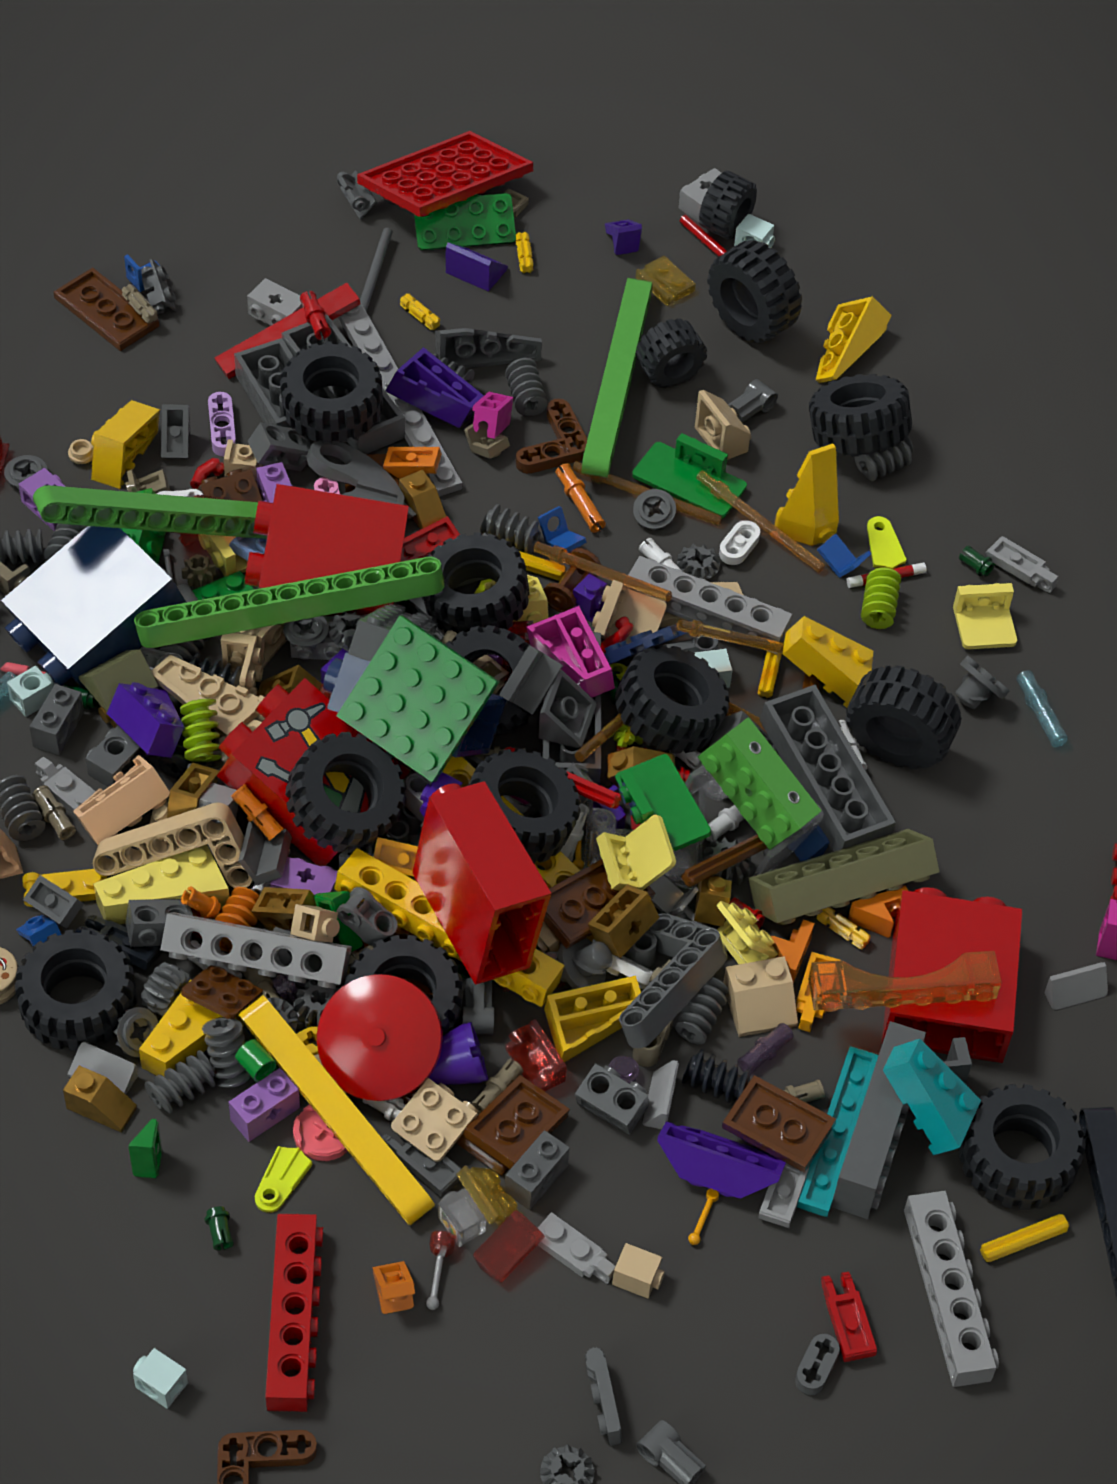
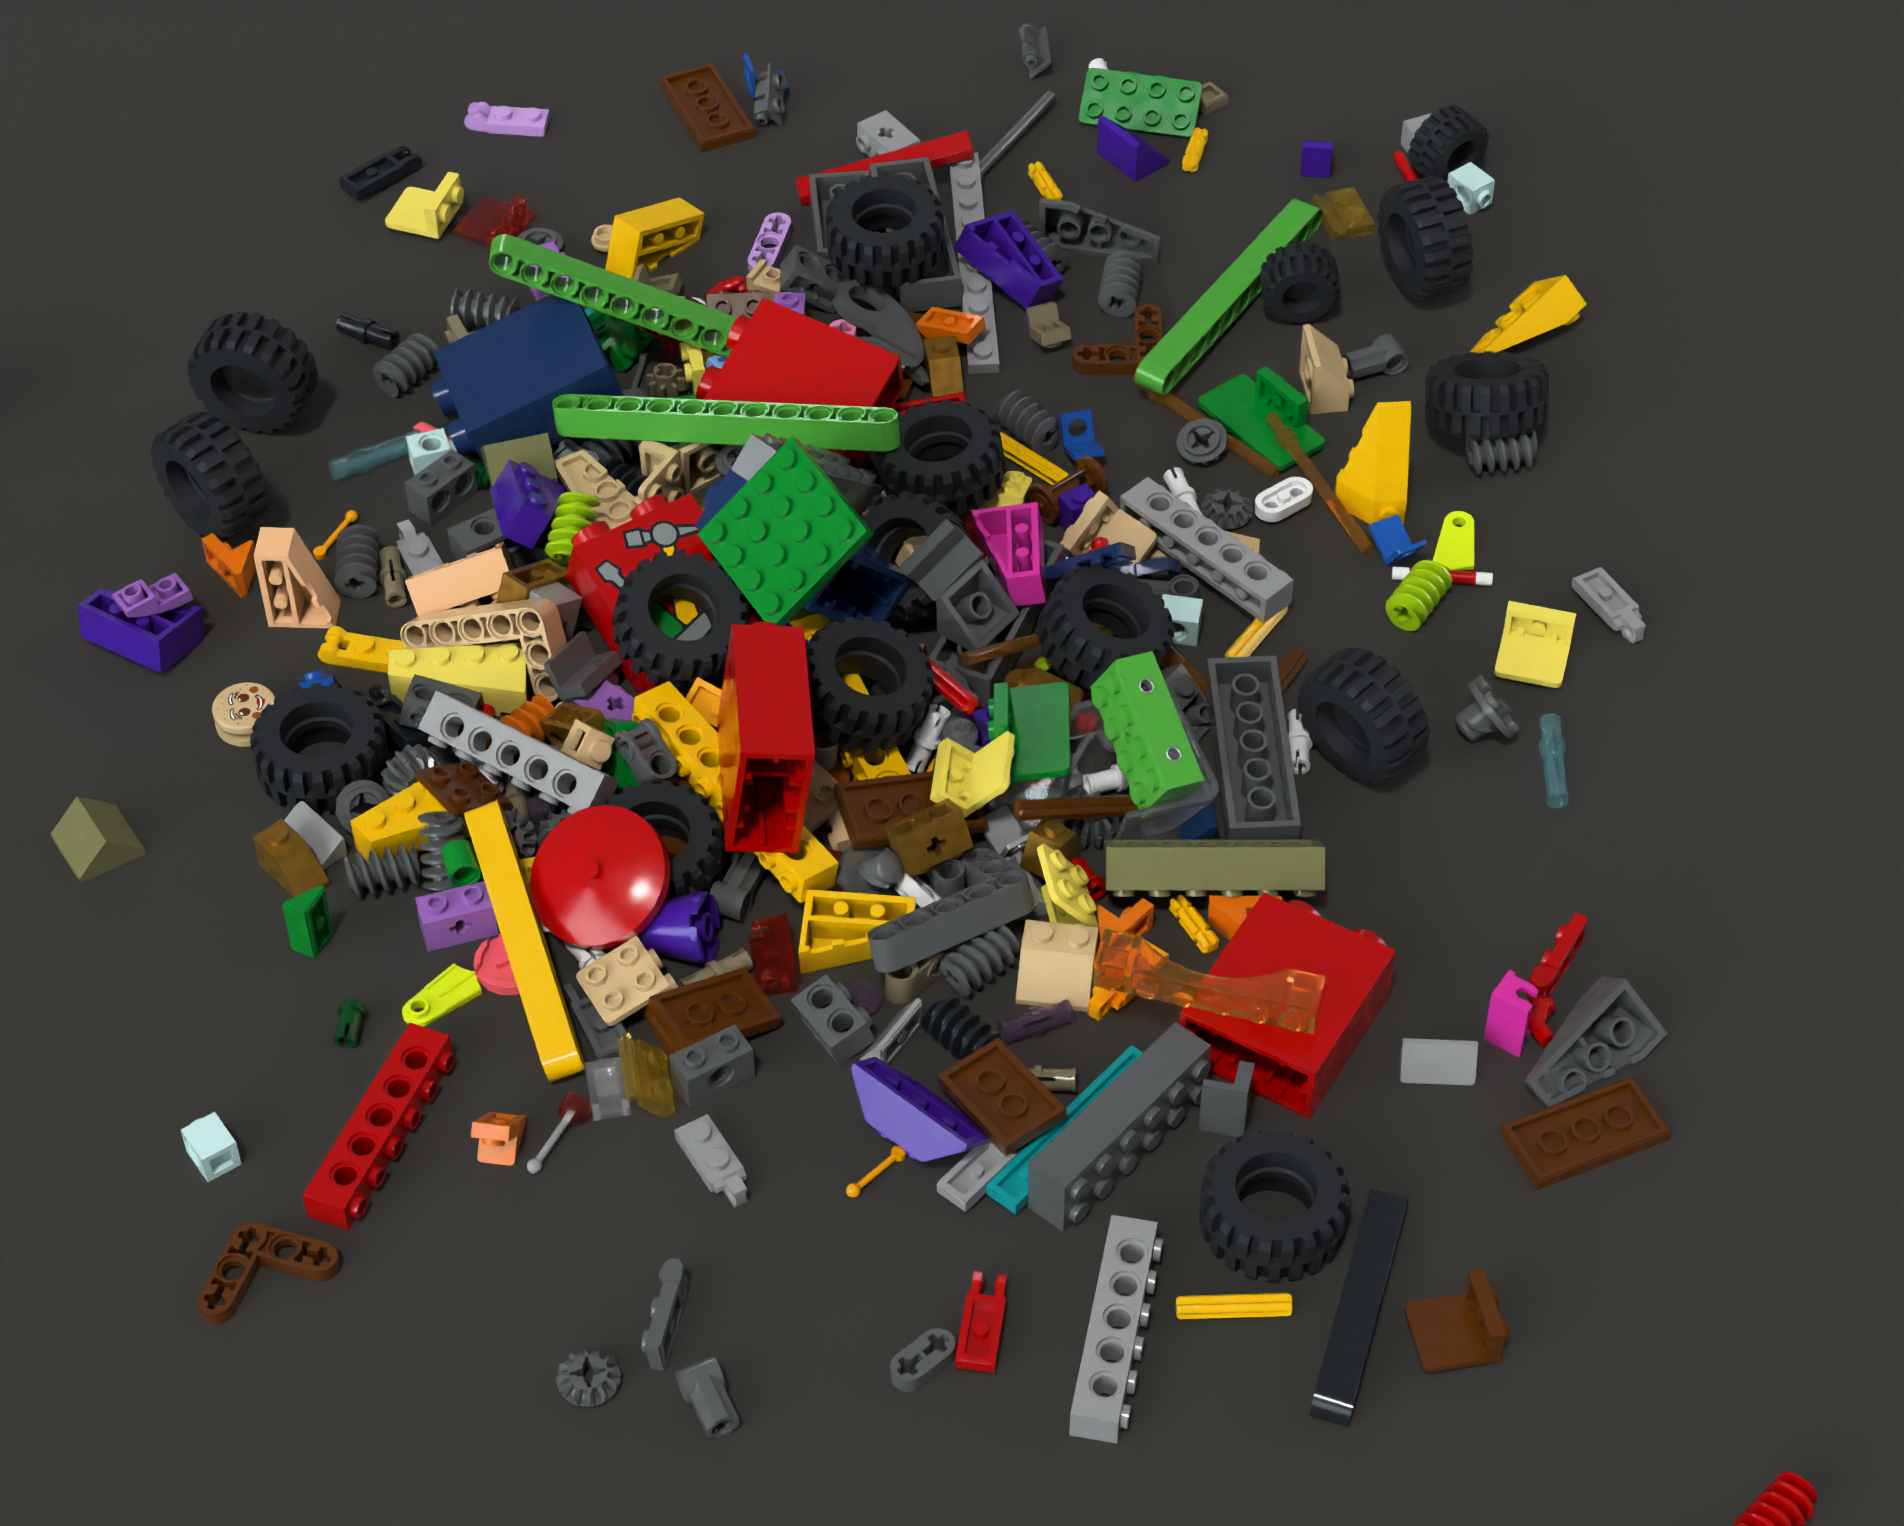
camera: 25 degrees right, 5 degrees down
(53, 901) = (342, 659): dark grey slope -> none
(139, 303) = (740, 107): dark tan axle -> none
(175, 431) = (711, 239): dark grey slope -> none
(207, 906) = (490, 699): orange pin -> none
(257, 812) = (587, 622): orange pin -> none
(315, 315) = (912, 152): red pin -> none
(445, 173) = (1140, 47): red plate -> none
(494, 410) = (1068, 300): dark pink hinge -> none
(508, 1246) = (640, 1131): clear red slope -> none
(560, 556) = (1065, 460): clear orange bar -> none
(574, 489) = (1123, 401): orange pin -> none
(638, 1271) = (769, 1200): tan brick -> none
(697, 629) = (1160, 559): clear orange bar -> none
(828, 656) = (1310, 627): yellow wedge -> none
(934, 1094) = (1182, 1108): teal wedge -> none
(981, 564) = (1562, 592): dark green pin -> none

